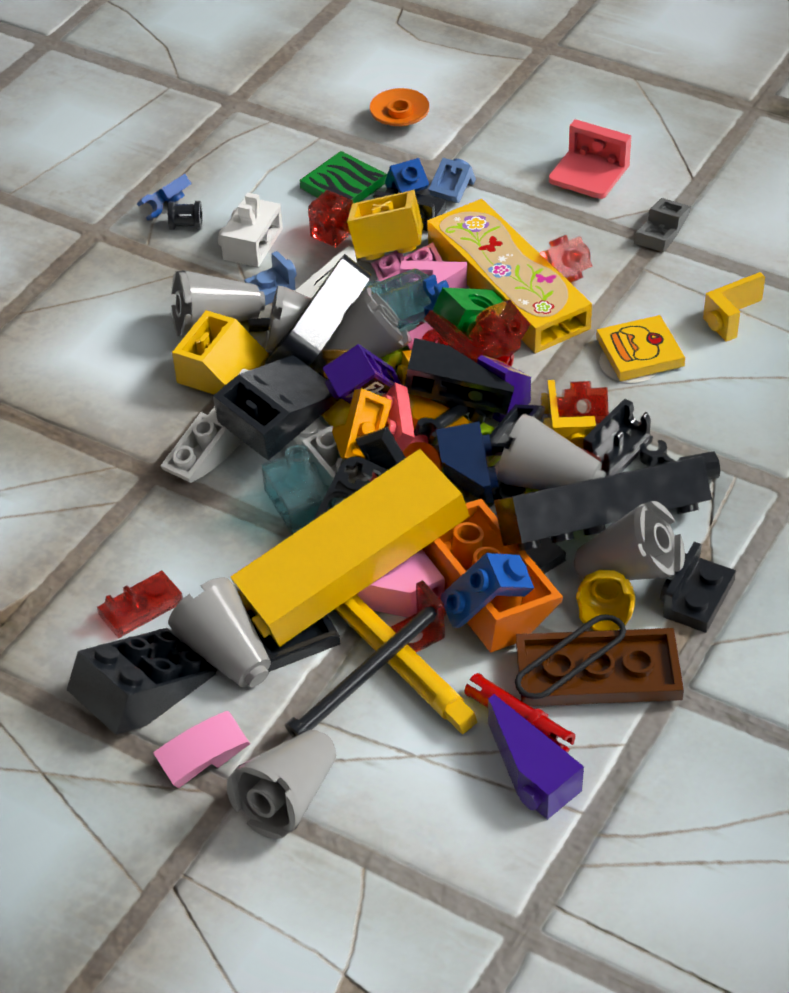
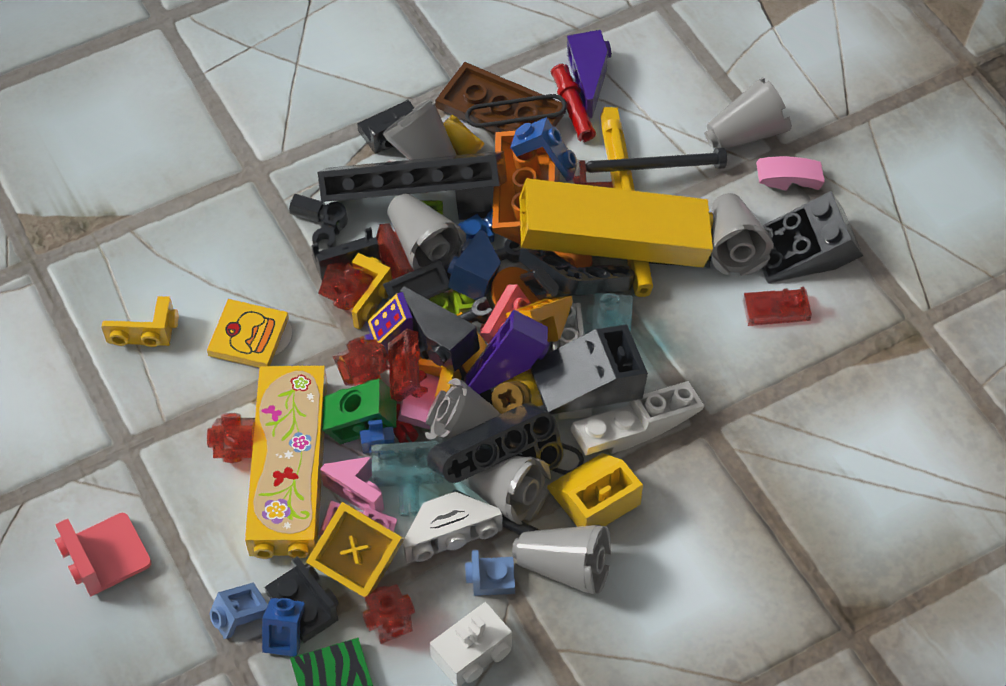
camera: 150 degrees left, 10 degrees up
(663, 224) = (101, 456): dark grey slope -> none

